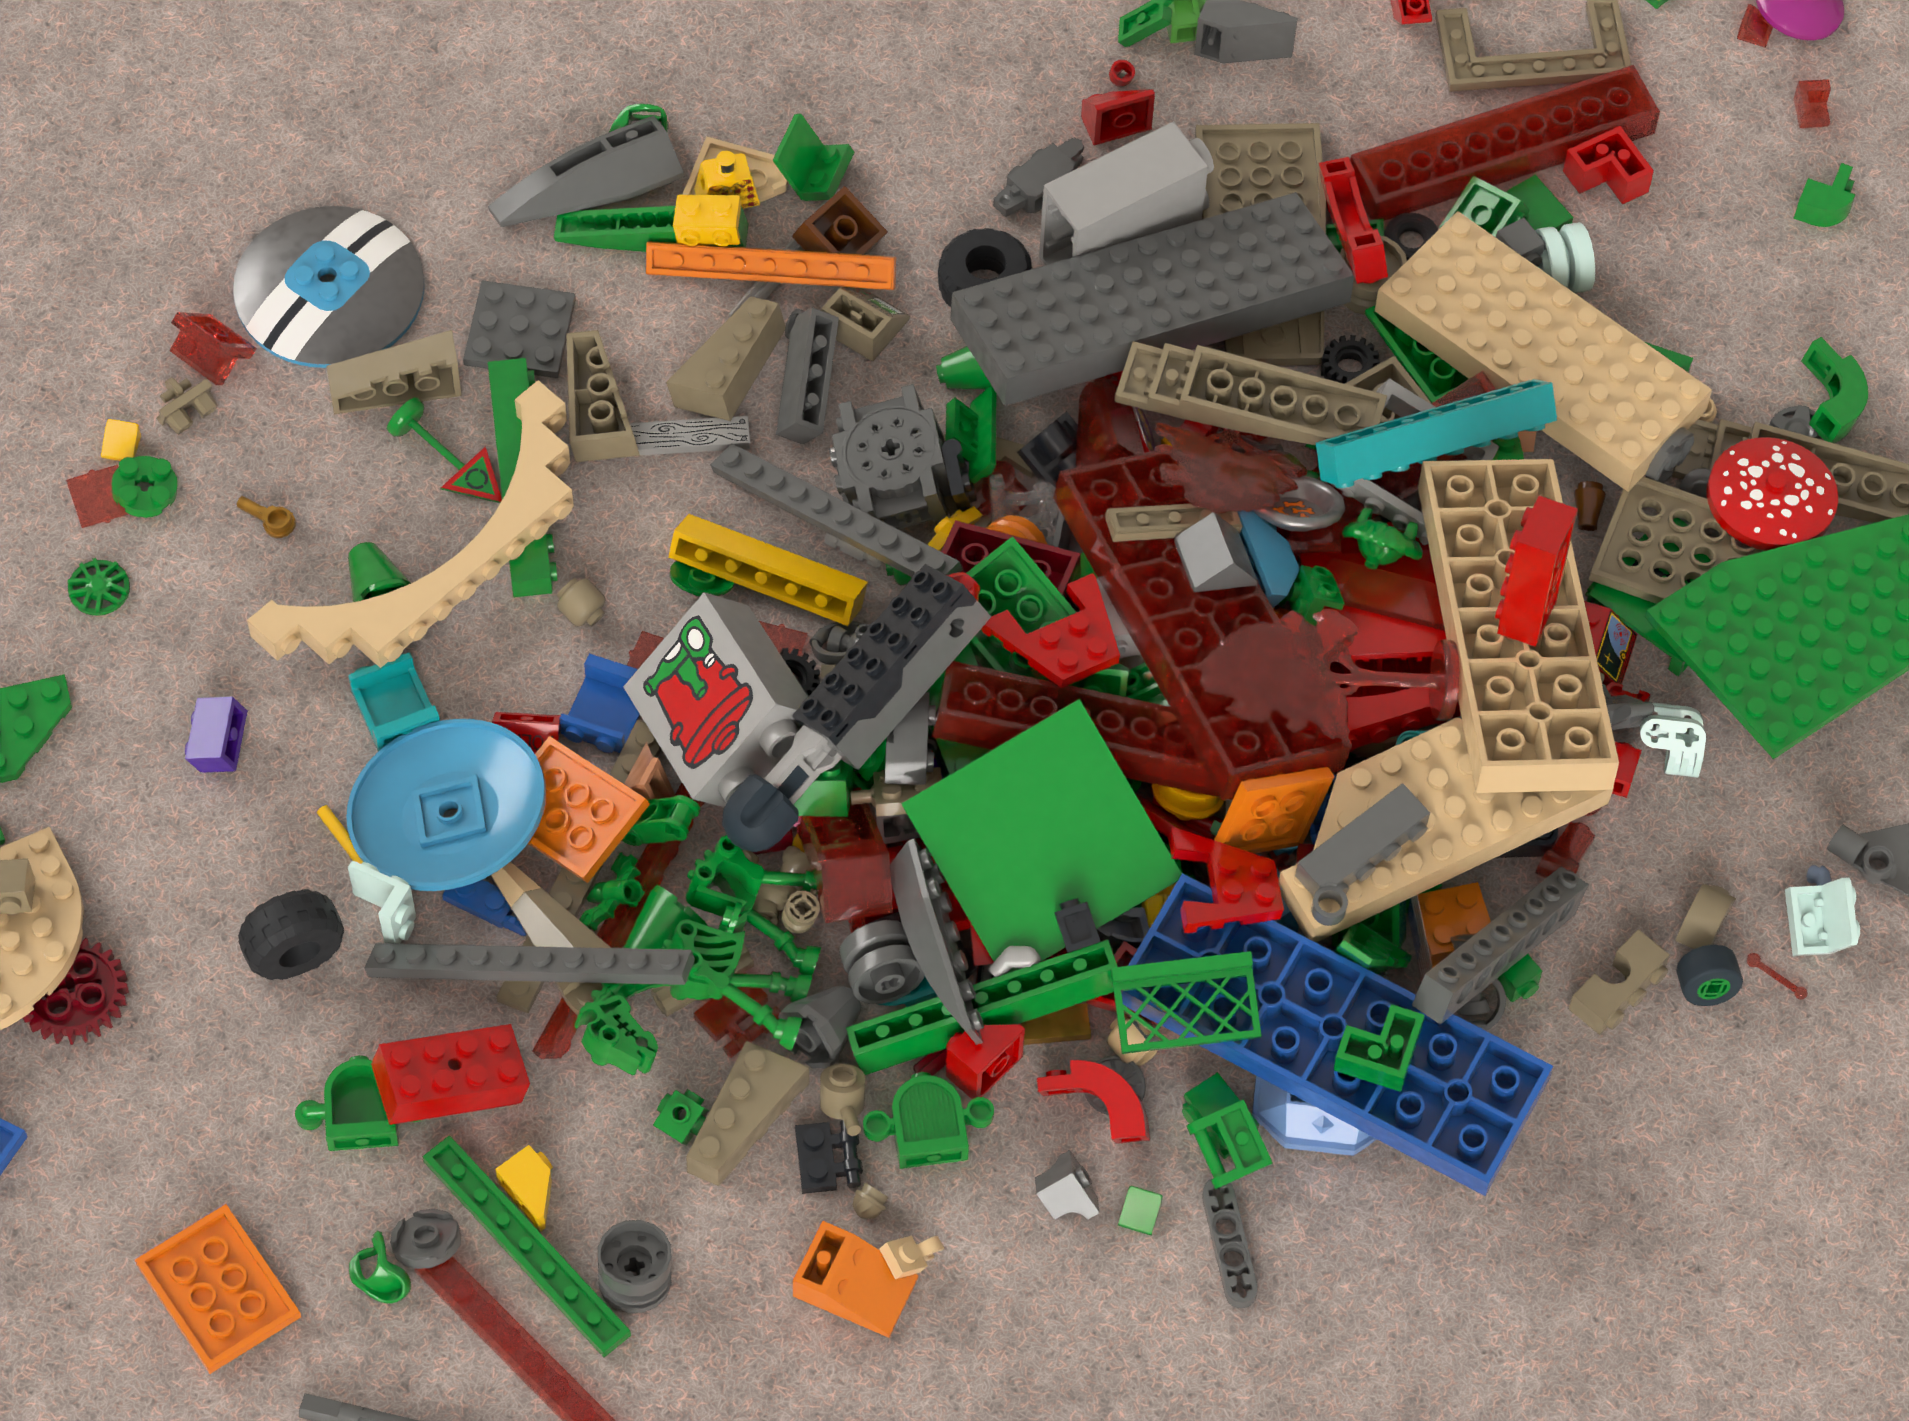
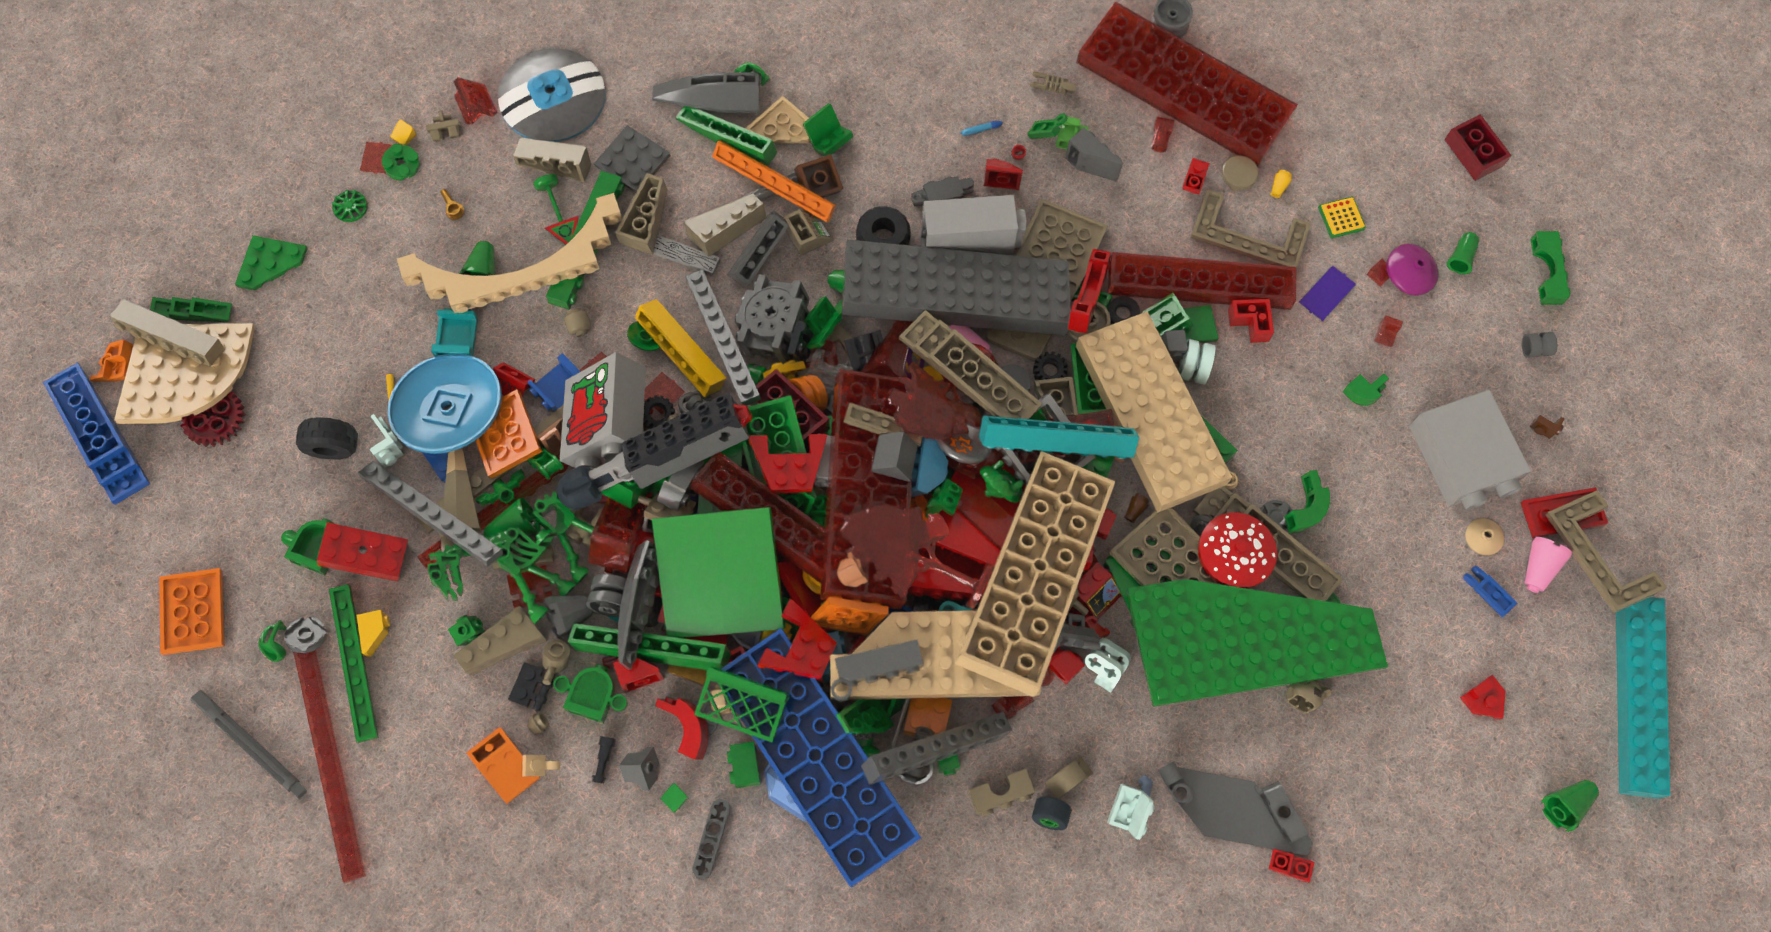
camera: 25 degrees right, 10 degrees up
(216, 734) = (357, 309): brick -> none
(639, 1249) = (387, 695): dark grey wheel -> none
(707, 219) = (750, 141): yellow bracket -> none
(727, 176) = (775, 126): yellow torso -> none
(797, 919) = (580, 549): dark tan wheel -> none
(993, 1183) = (606, 745): none -> black piece
(1014, 957) = (674, 629): light grey arm -> none
(1042, 61) = (980, 128): none -> dark azure piece
(1076, 925) = (713, 628): black bracket -> none
(1240, 1139) = (741, 787): green plate -> none
(1256, 730) = (851, 571): none -> nougat piece
(1382, 1057) = (828, 791): green brick -> none
(1535, 570) = (1051, 553): red brick -> none
(1670, 454) = (1191, 502): dark grey tile -> none
(1695, 88) = (1327, 293): none -> dark purple piece
(1754, 960) = (1084, 813): clear red hinge -> none

